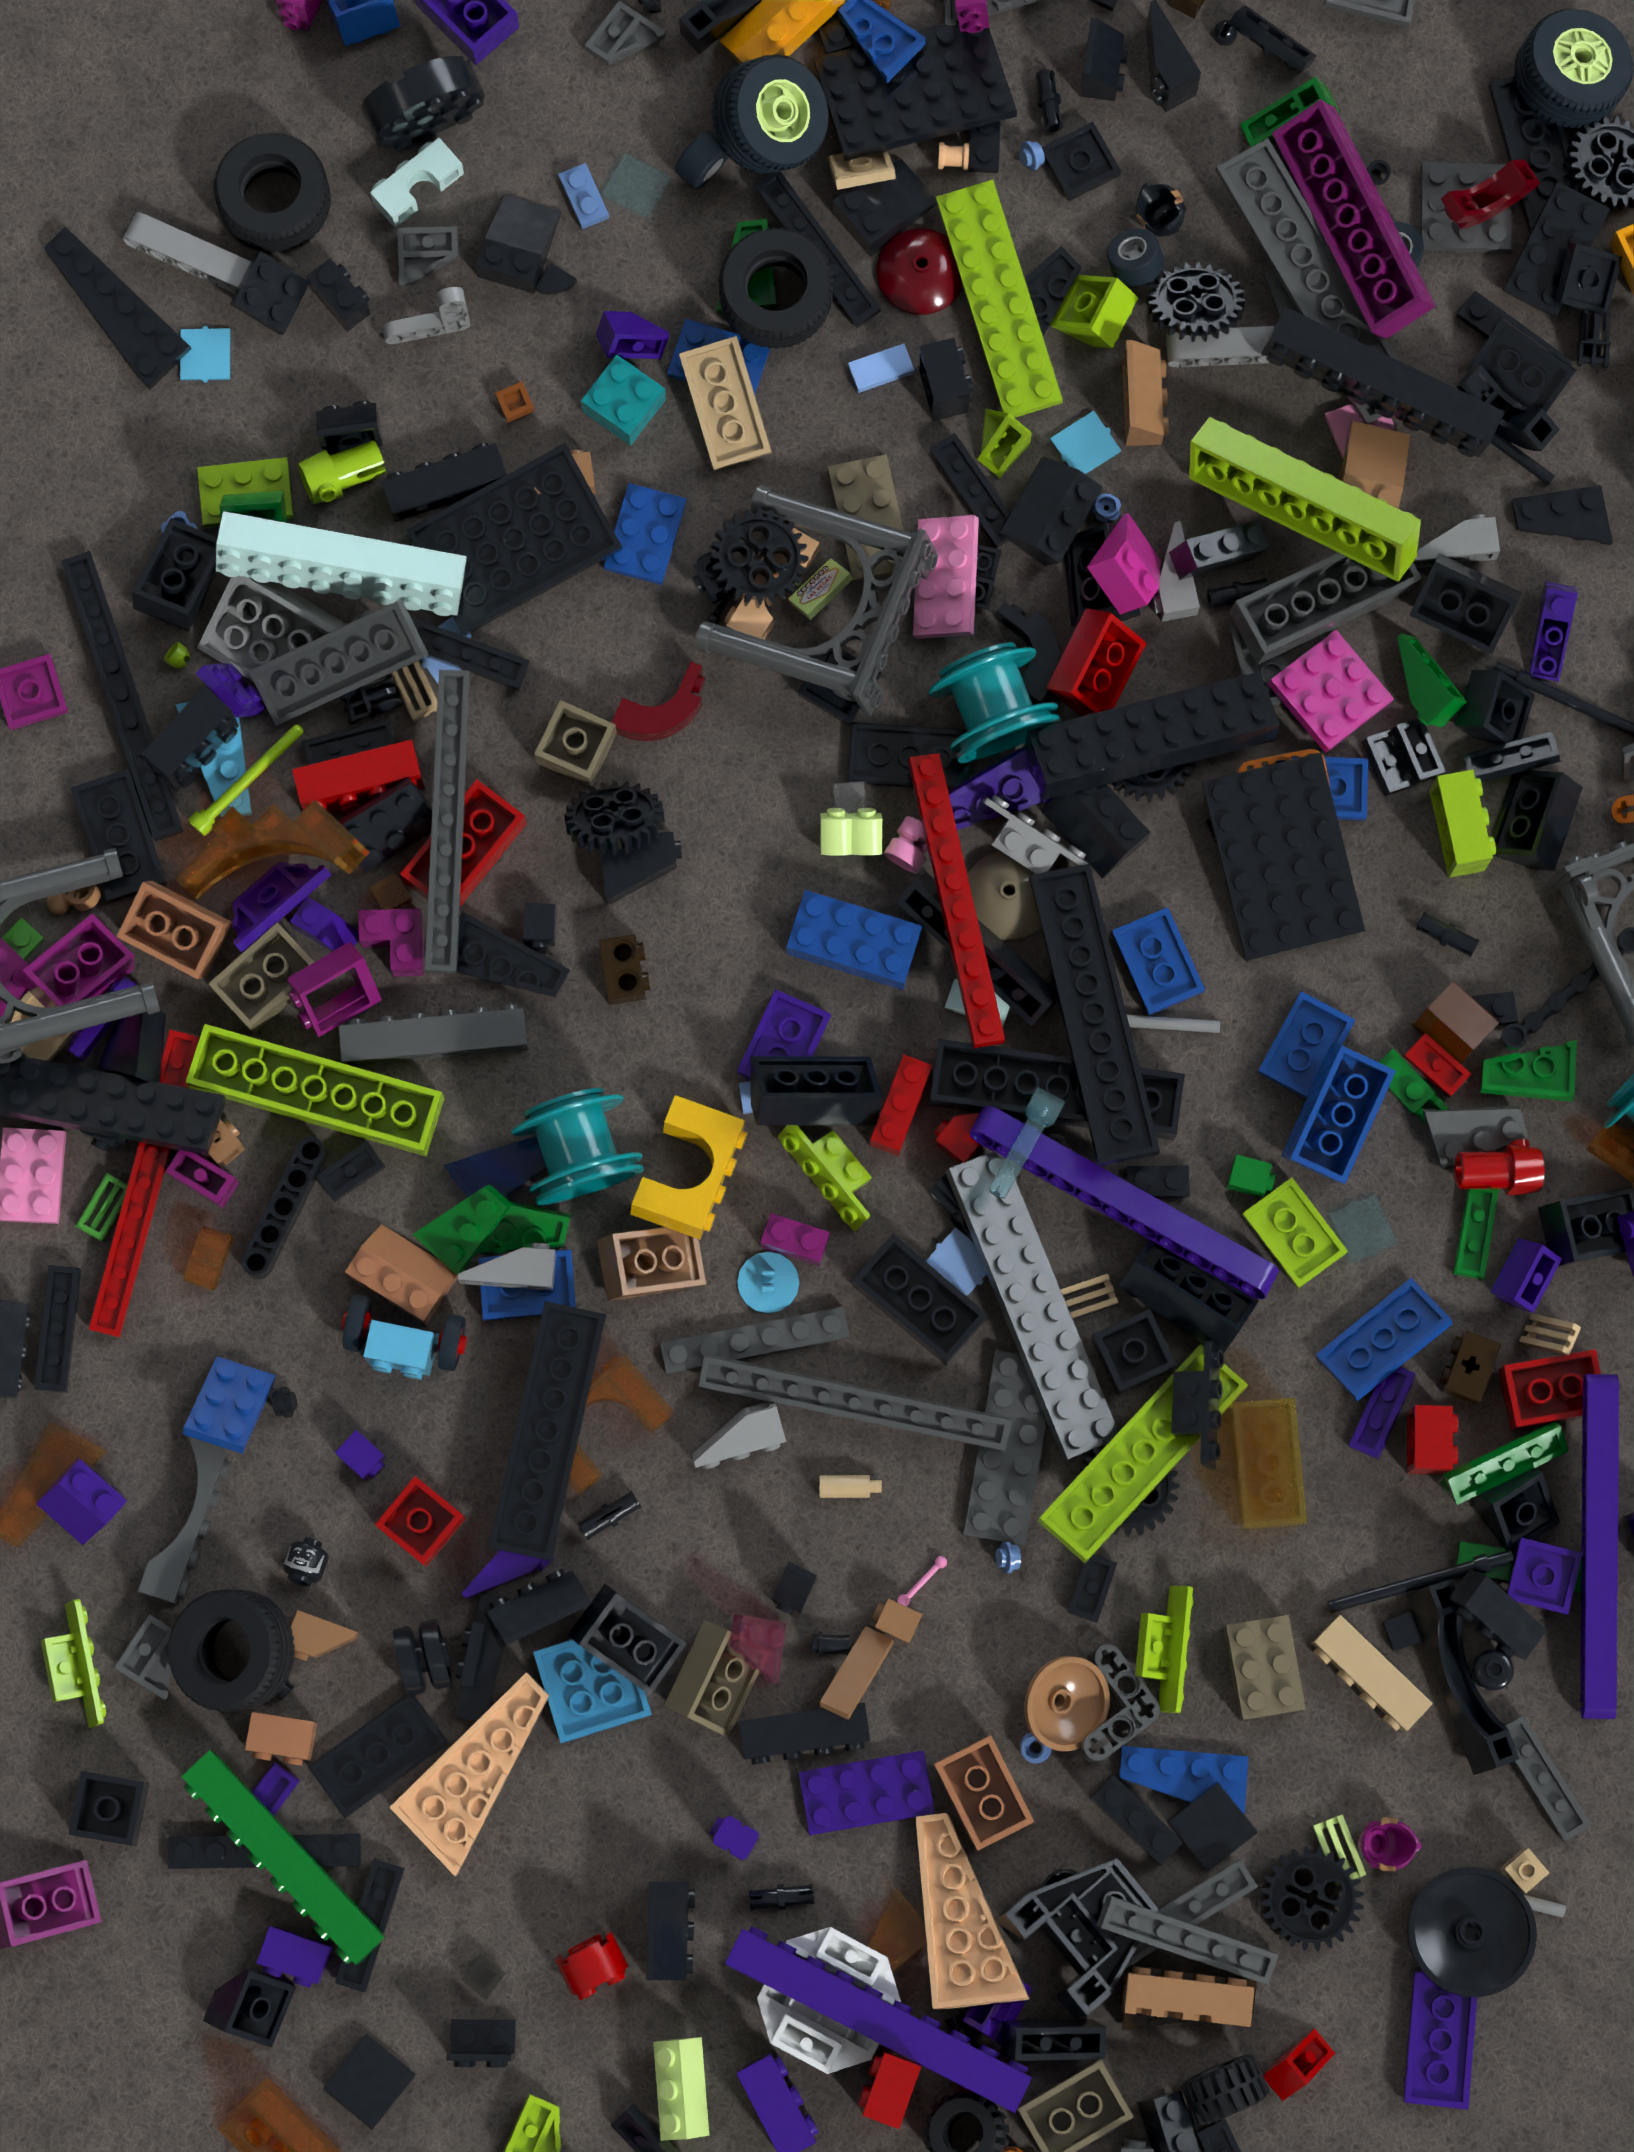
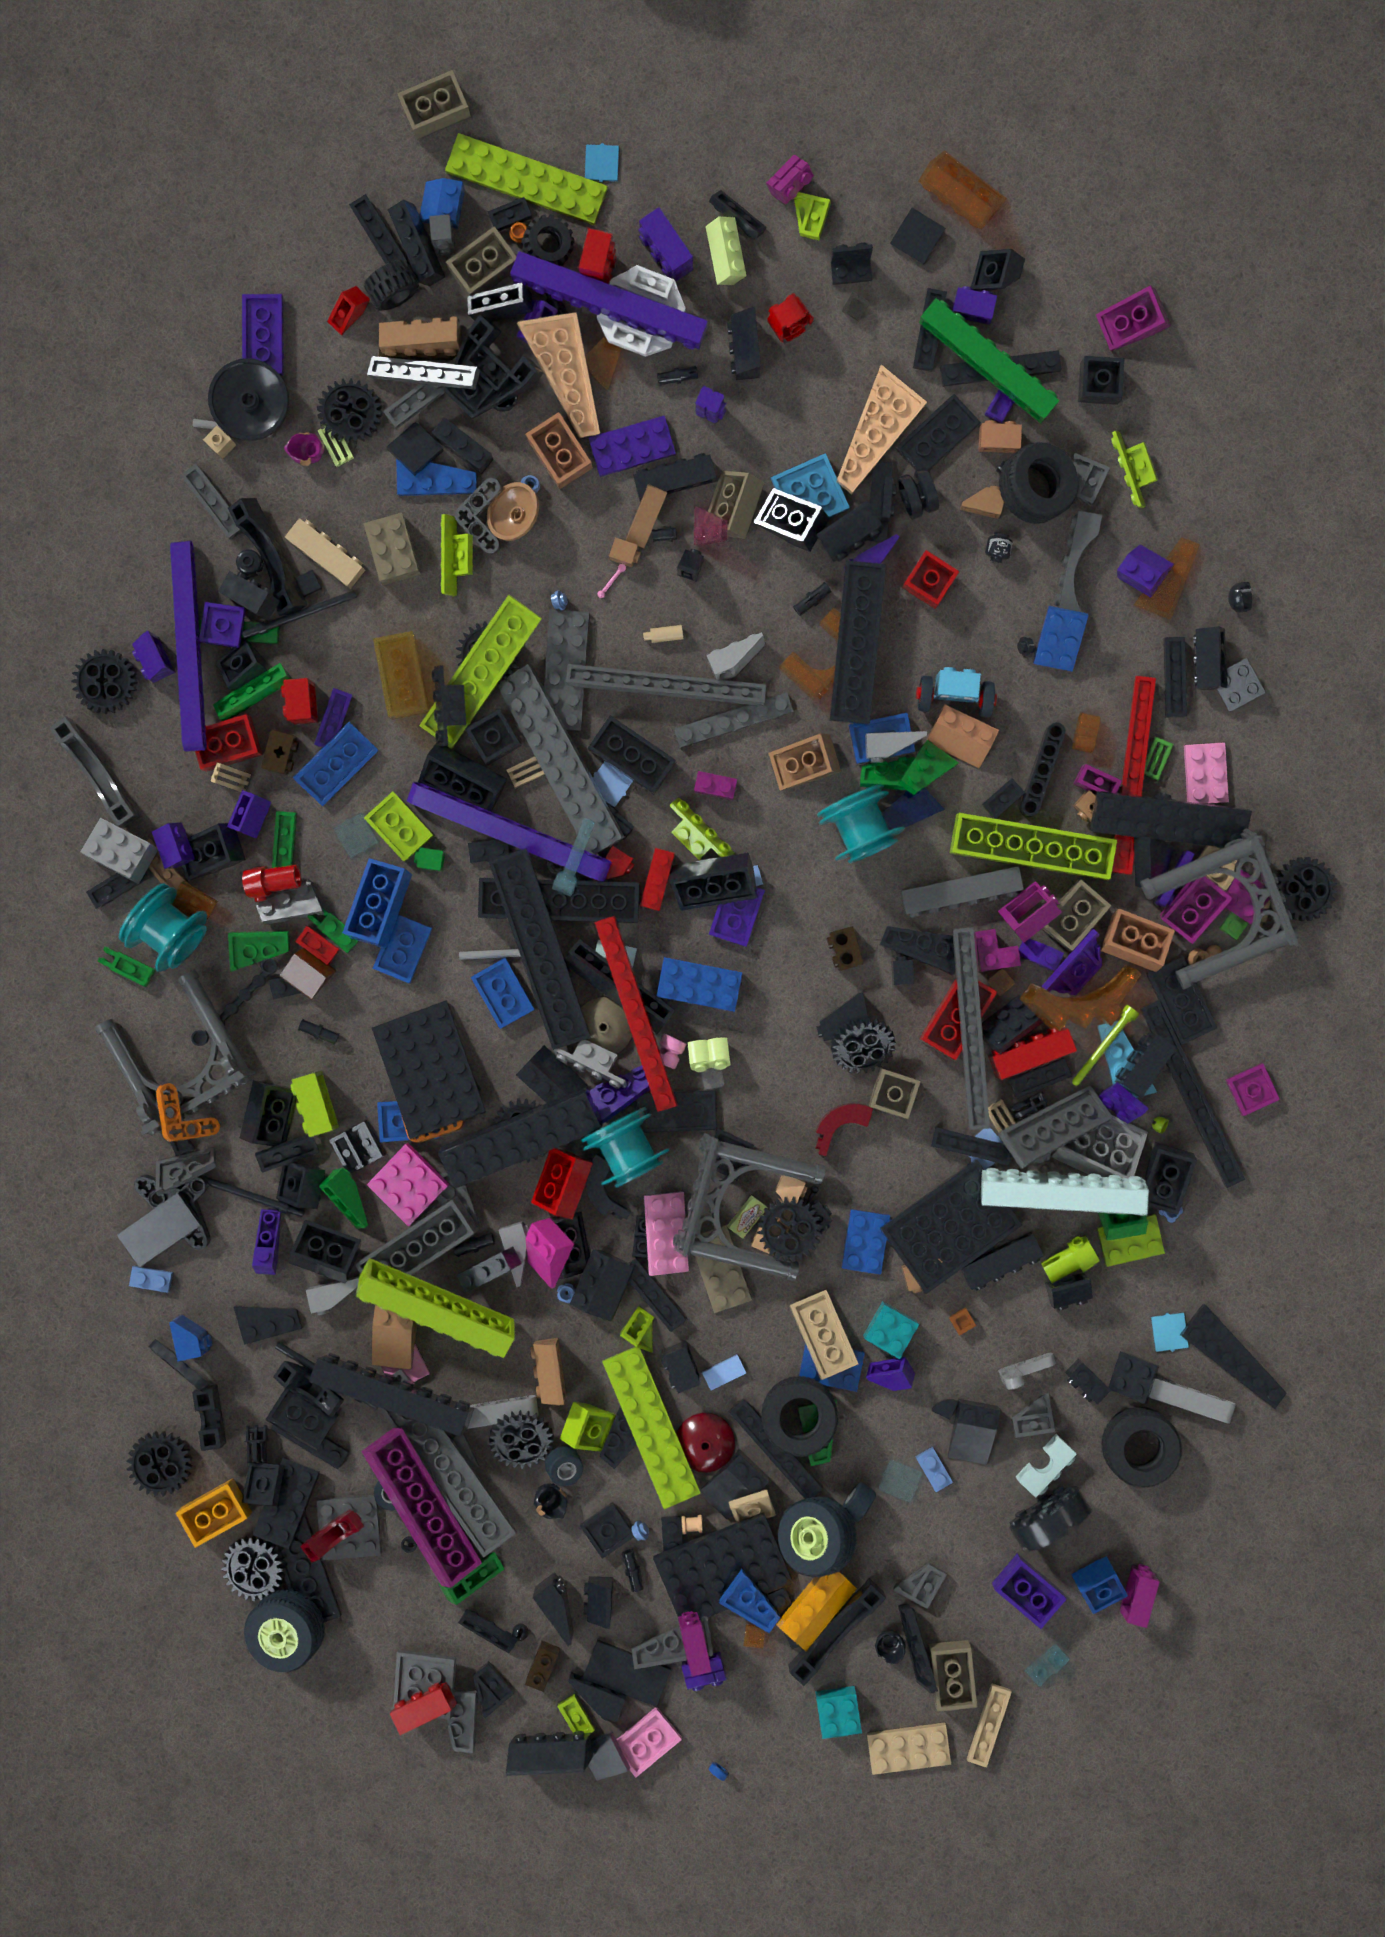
camera: 175 degrees right, 10 degrees up
(361, 1456) = (972, 617): dark purple brick -> none
(691, 1209) = (782, 795): yellow arch -> none
(768, 1282) = (729, 758): medium azure piece -> none
(1085, 443) = (584, 1335): medium azure piece -> none
(1092, 1588) = (504, 585): black plate -> none

